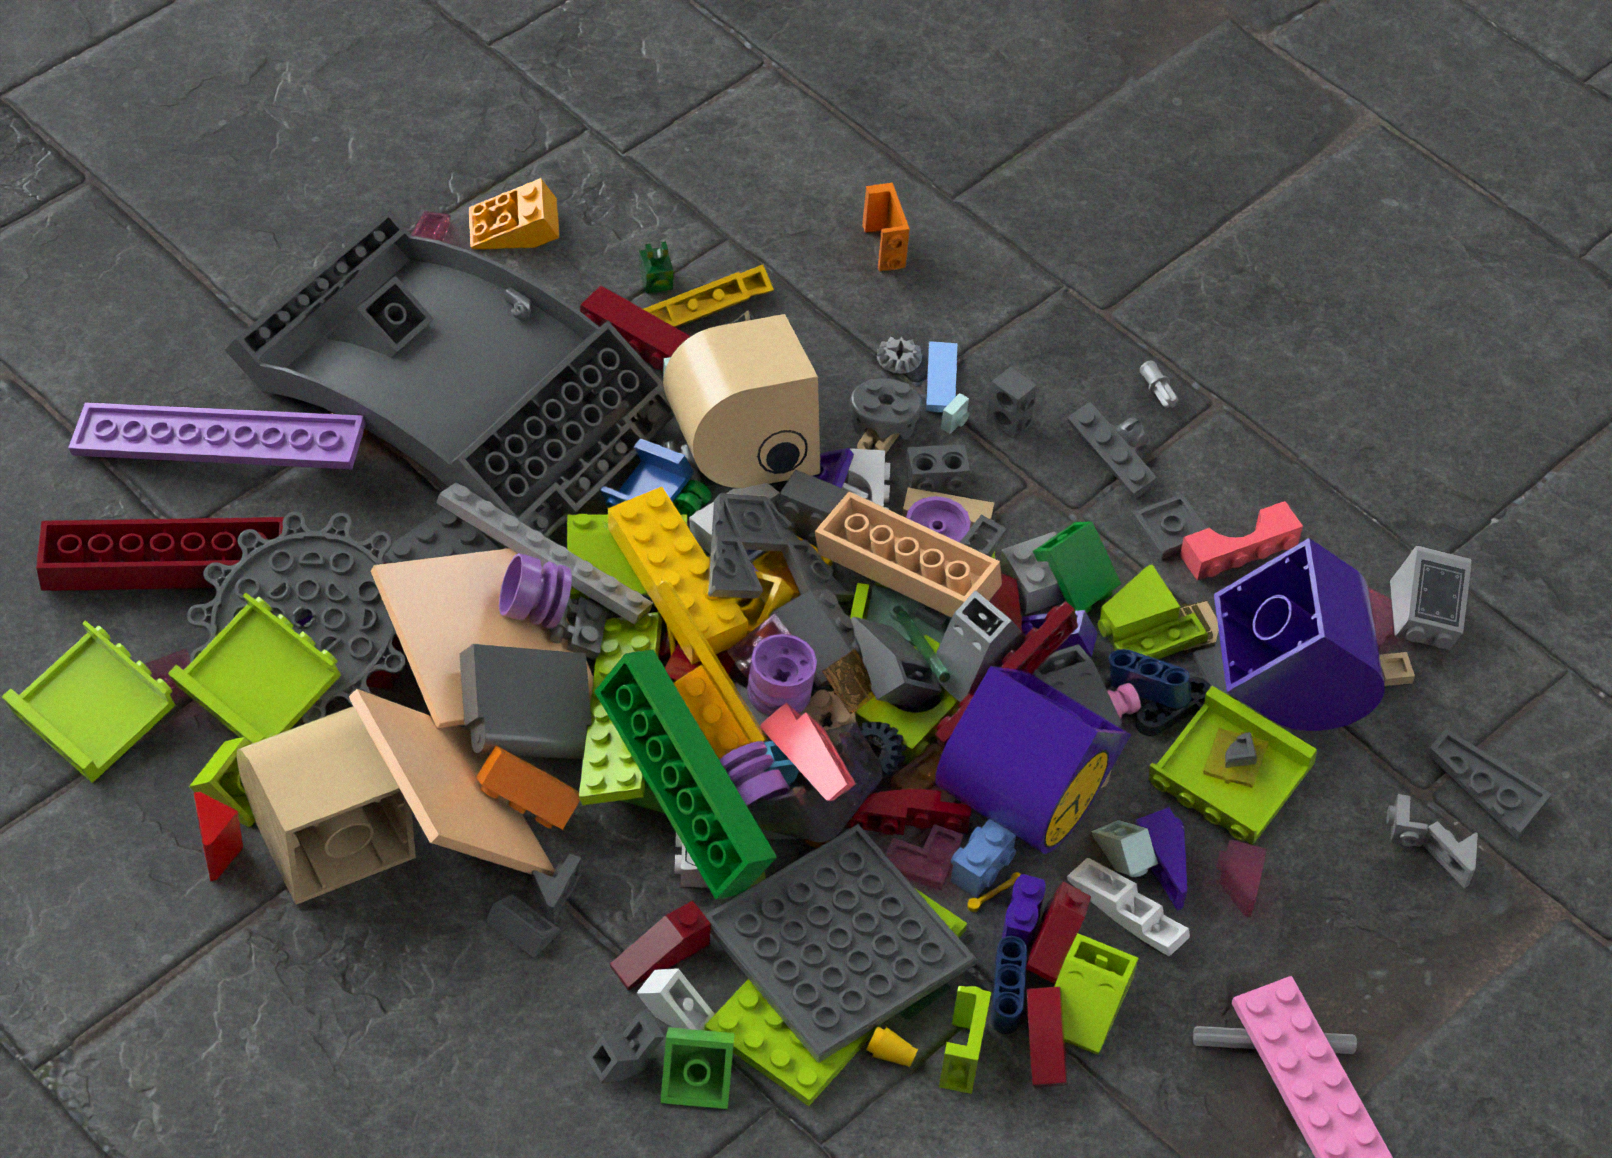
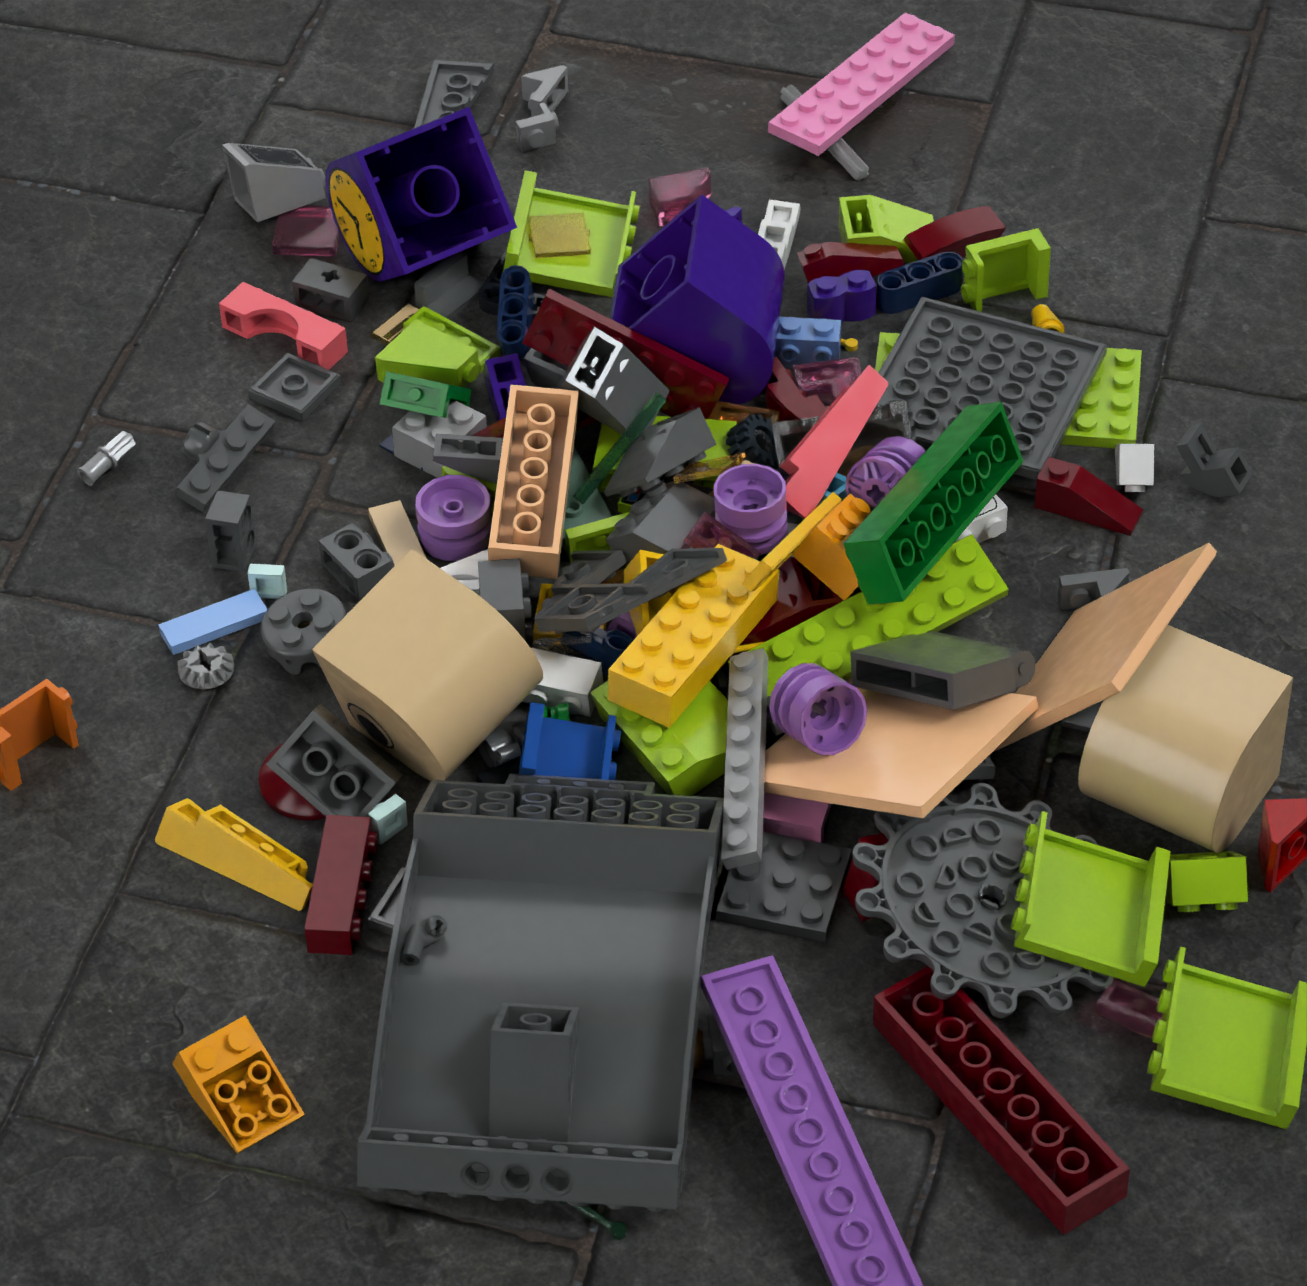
camera: 115 degrees left, 5 degrees down
(425, 230) = (317, 1171): clear pink slope -> none
(528, 788) = (1028, 633): orange brick -> none
(656, 268) = (228, 910): dark green brick -> none
(697, 1068) = (1168, 415): bright green slope -> none
(1241, 752) = (556, 226): dark grey tile -> none

